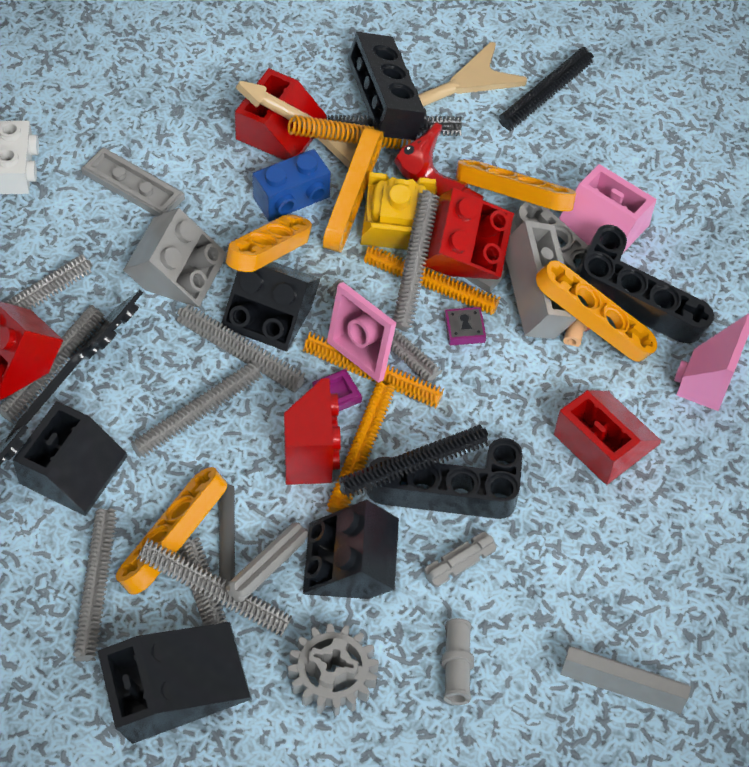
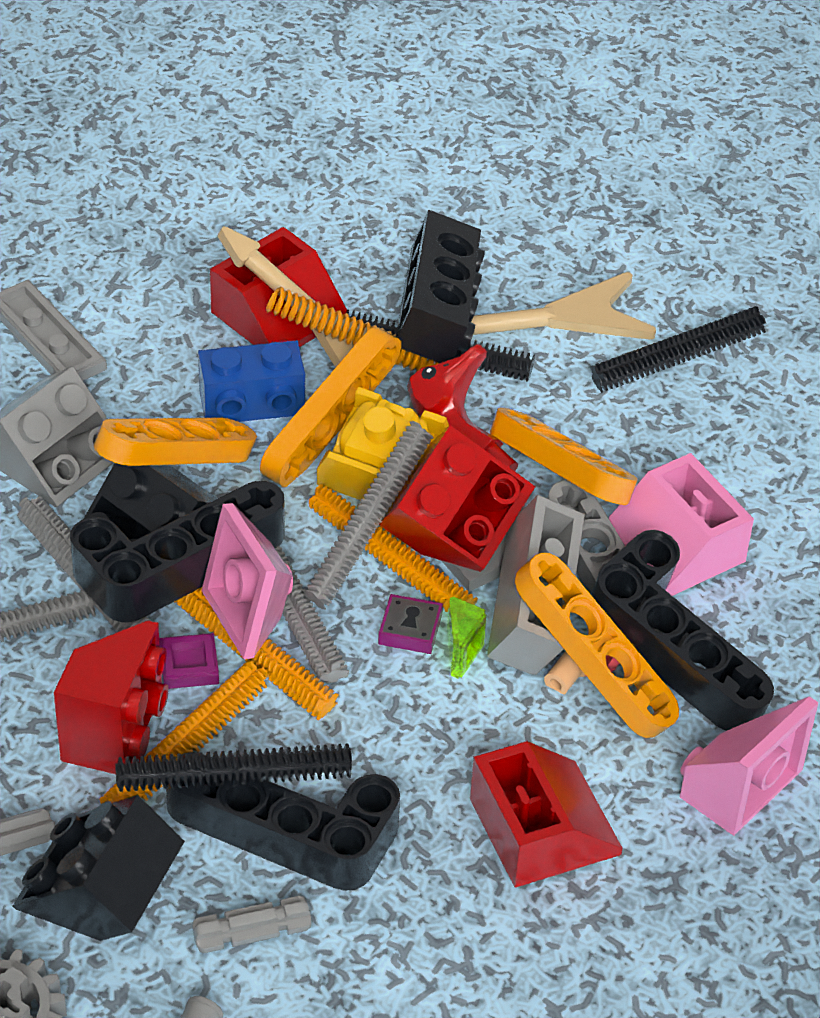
camera: 20 degrees right, 10 degrees down
(288, 338) = (169, 563): none -> black beam
(502, 323) = (465, 634): none -> clear neon green slope

